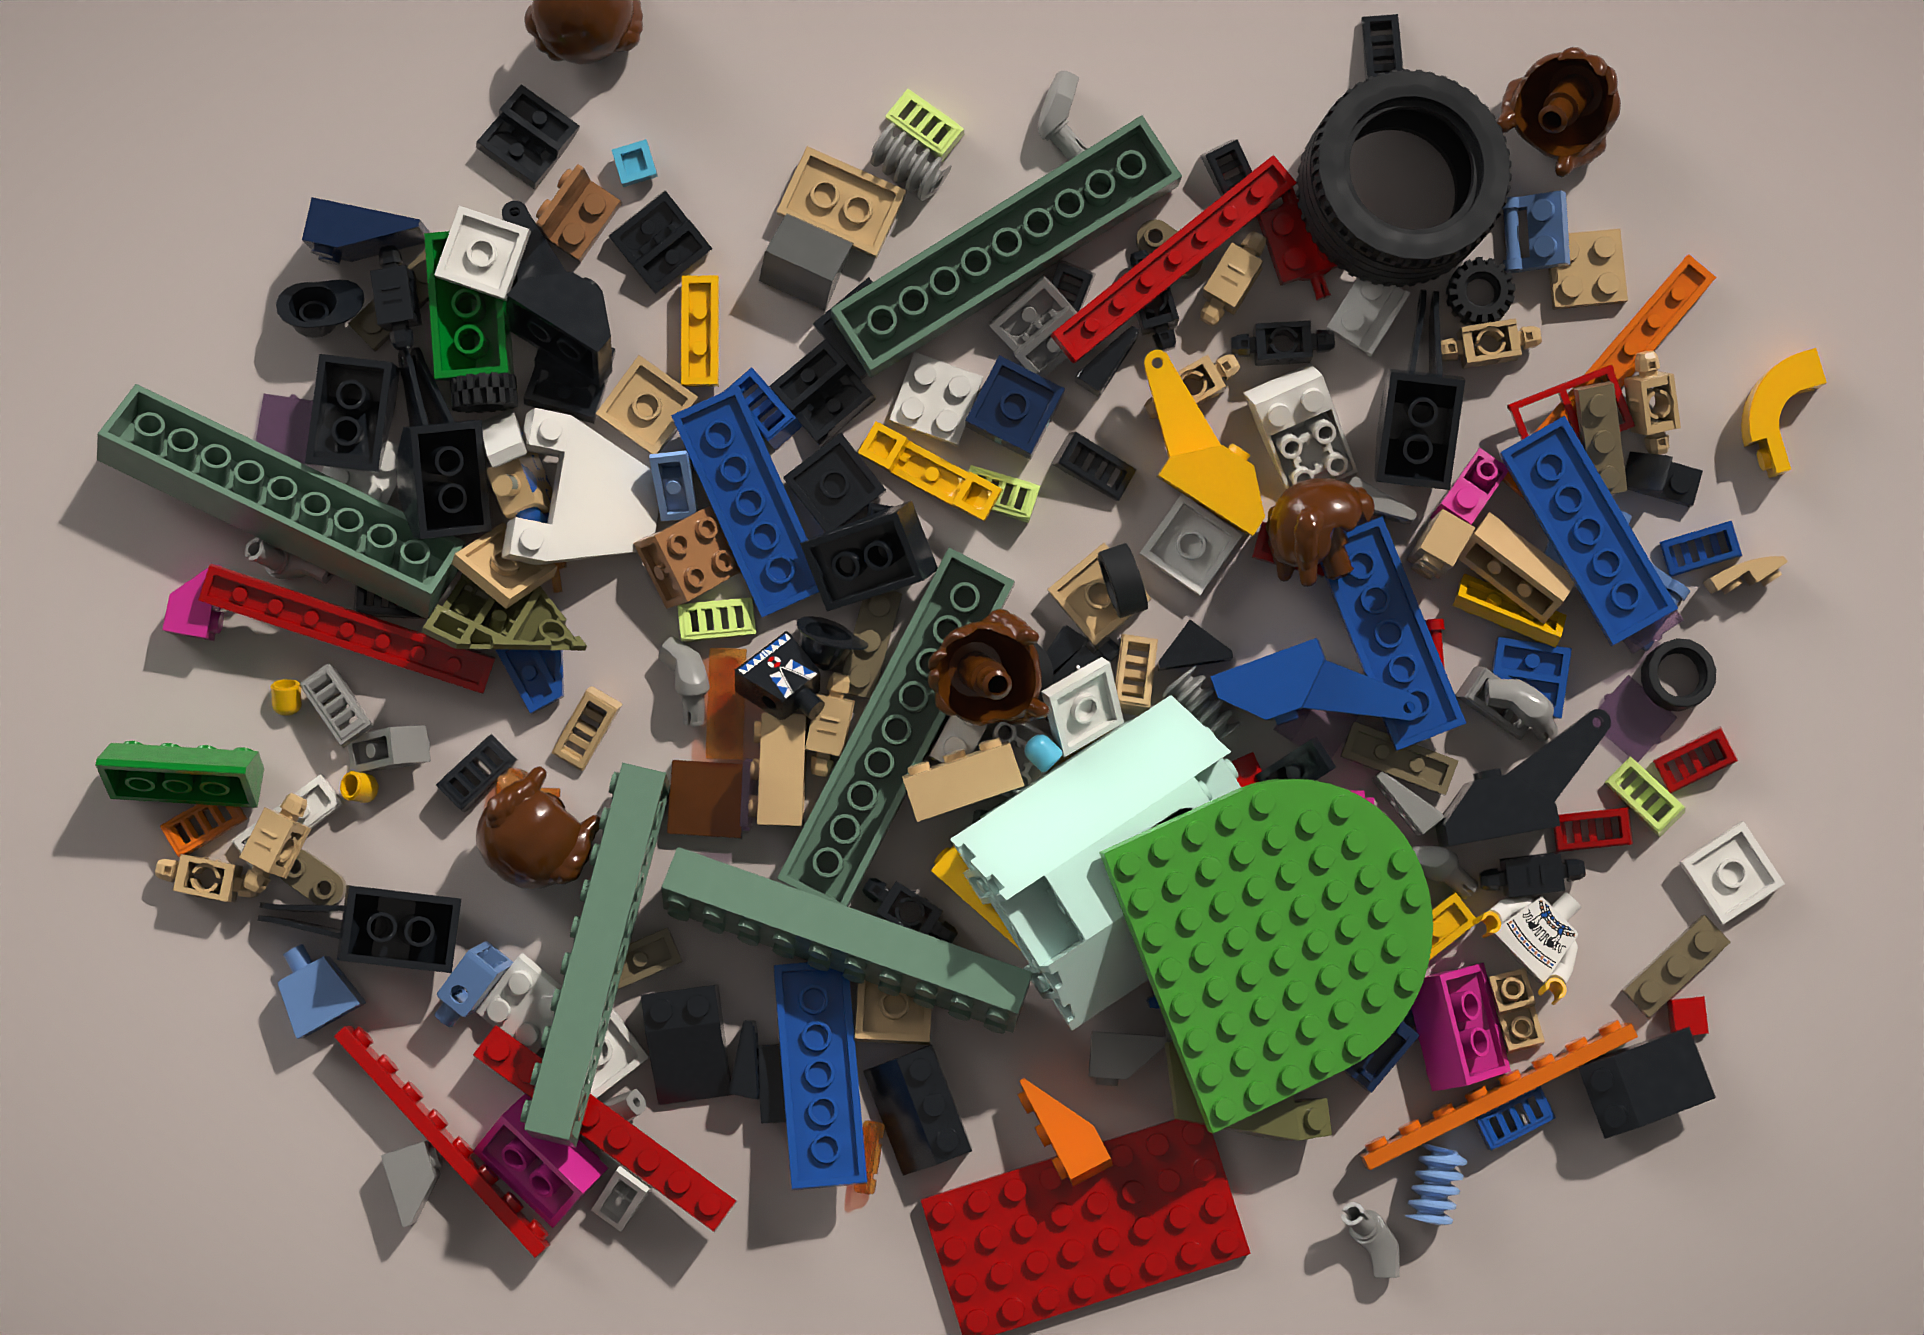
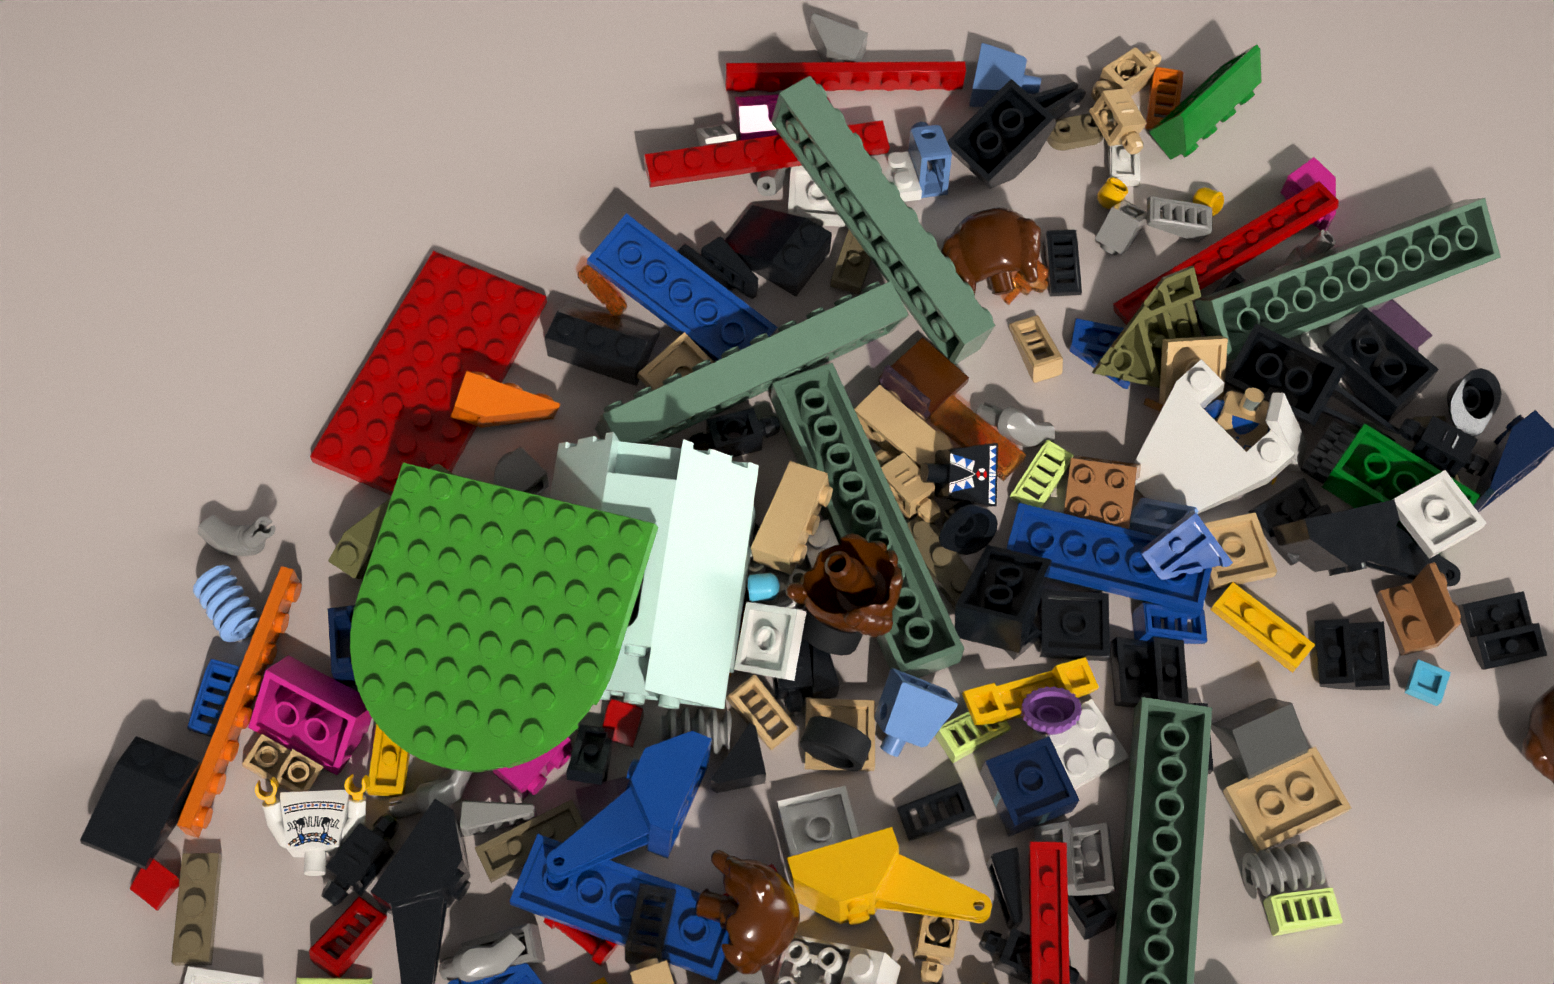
camera: 120 degrees right, 20 degrees down
(701, 437) = (1184, 549): none -> wing
(936, 439) = (1051, 710): none -> medium lavender hat
(1034, 548) = (911, 711): none -> medium blue torso
(1418, 583) = (646, 947): none -> clear smoke slope

